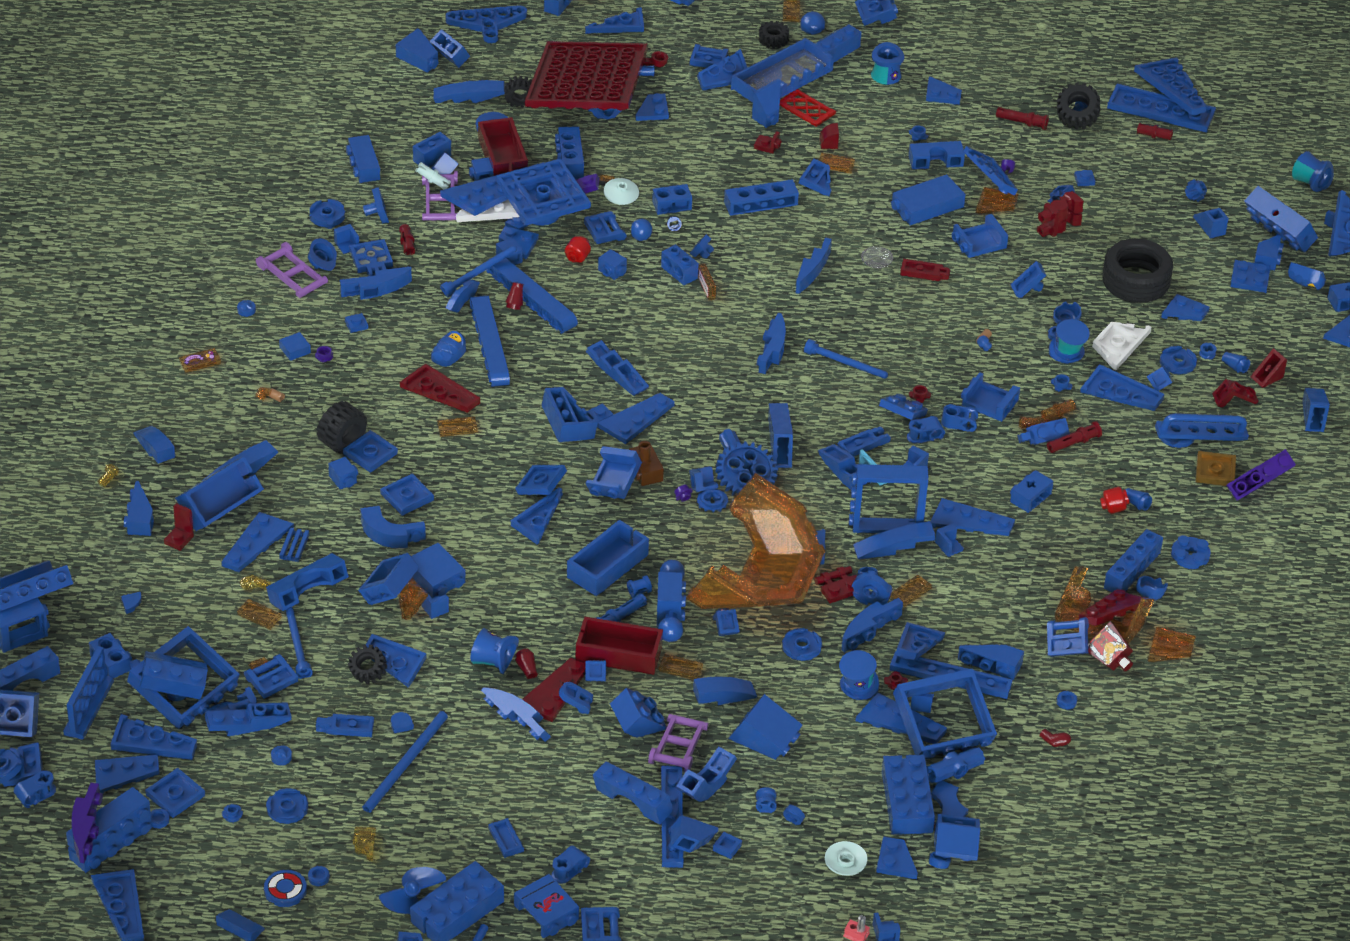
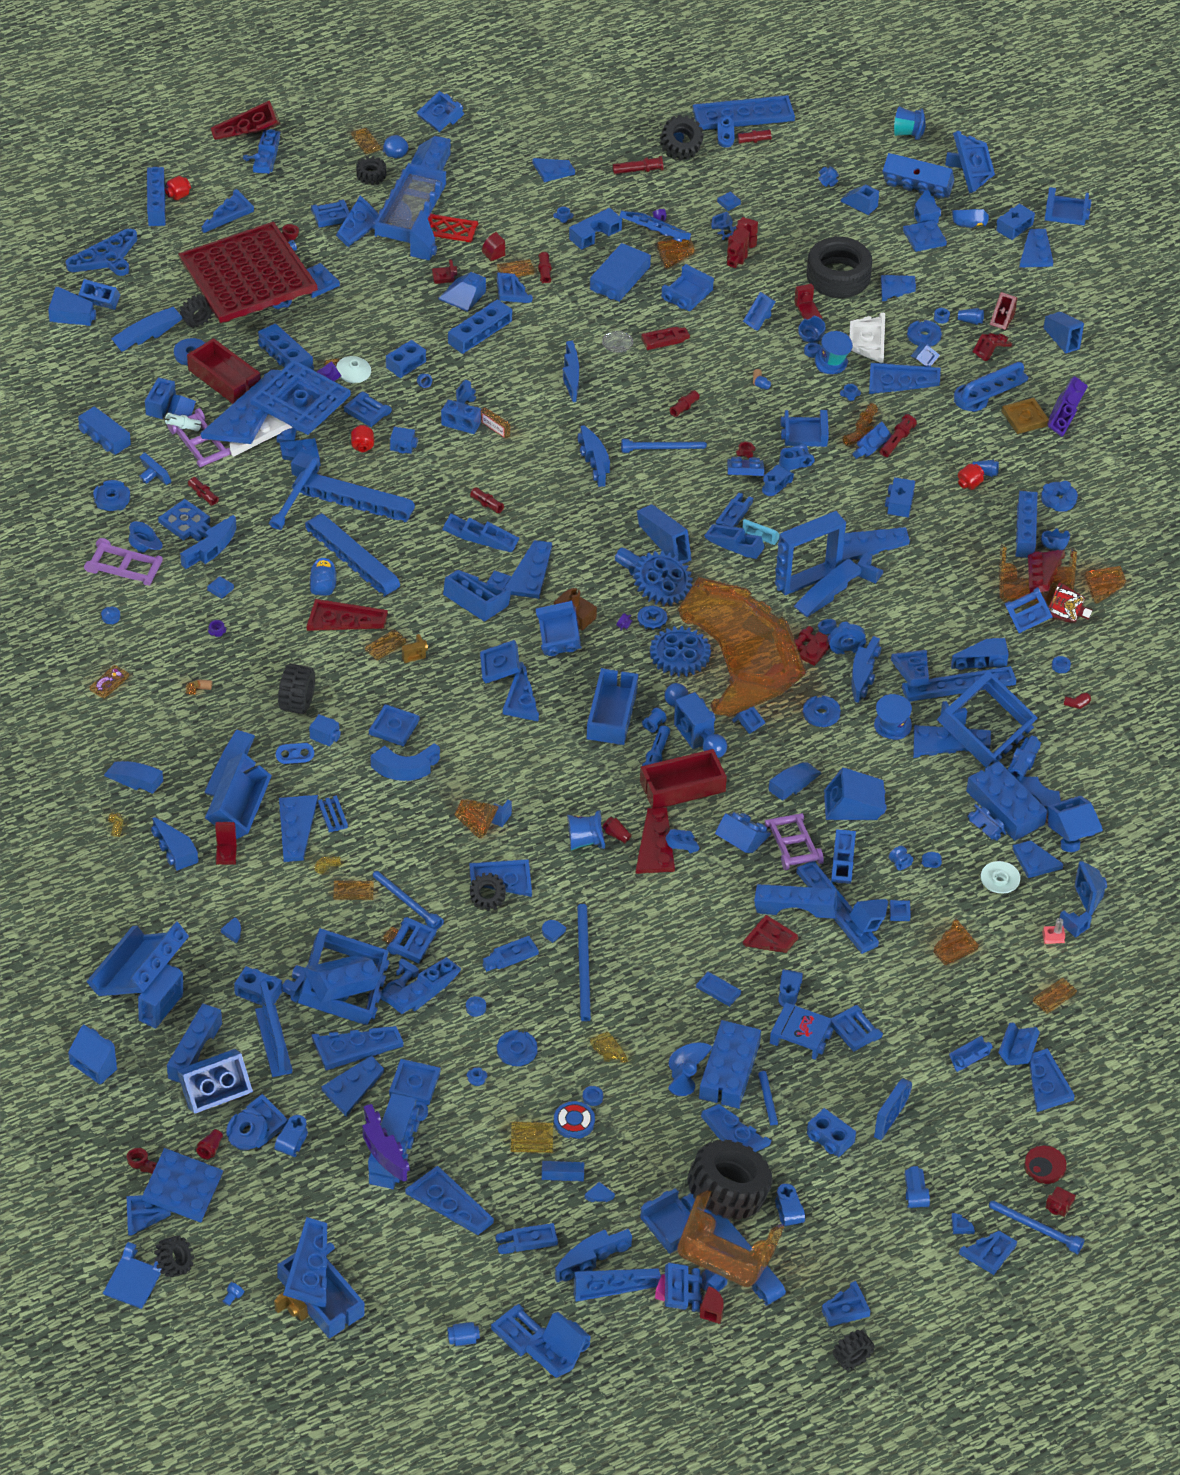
camera: 30 degrees left, 5 degrees up
(235, 884) = (531, 1137): none -> clear yellow plate
(295, 346) = (184, 632): blue piece -> none
(303, 481) = (294, 753): none -> blue plate
(324, 571) = (383, 825): blue arch -> none
(344, 237) = (149, 511): blue panel -> none
(370, 451) = (330, 700): blue plate -> none
(388, 579) = (458, 816): blue window -> none
(438, 571) = (476, 781): blue brick -> none
(462, 295) = (297, 522): blue tile -> none
(476, 441) = (415, 650): none -> pearl gold bracket
(480, 169) = (219, 399): blue brick -> none
(515, 296) = (345, 506): dark red cone -> none
(516, 709) = (636, 872): slope -> none
(589, 814) = (771, 936): none -> dark red wing
(595, 670) = (677, 810): blue tile -> none
(641, 229) = (402, 397): blue piece -> none
(646, 343) = (487, 500): none -> dark red pin
(680, 667) = (743, 775): clear orange tile -> none
(702, 479) = (631, 603): blue panel -> none
(712, 538) = (680, 651): none -> blue gear
(754, 897) = (955, 944): none -> clear orange wing
(773, 165) = (465, 291): none -> slope
(863, 171) = (544, 267): none -> dark red pin
(874, 799) = (982, 817): none -> blue hinge
(887, 63) = (492, 160): blue hat -> none
(894, 679) = (920, 713): dark red plate -> none
(895, 332) = (684, 403): none -> dark red pin
(911, 590) = (872, 623): clear orange tile -> none
(917, 457) = (789, 512): blue panel -> none
(924, 904) = (1090, 886): none -> blue slope
(1083, 289) = (804, 301): none -> dark red bracket
(1129, 116) = (725, 131): none -> blue plate
(1173, 82) = (740, 86): blue wing -> none

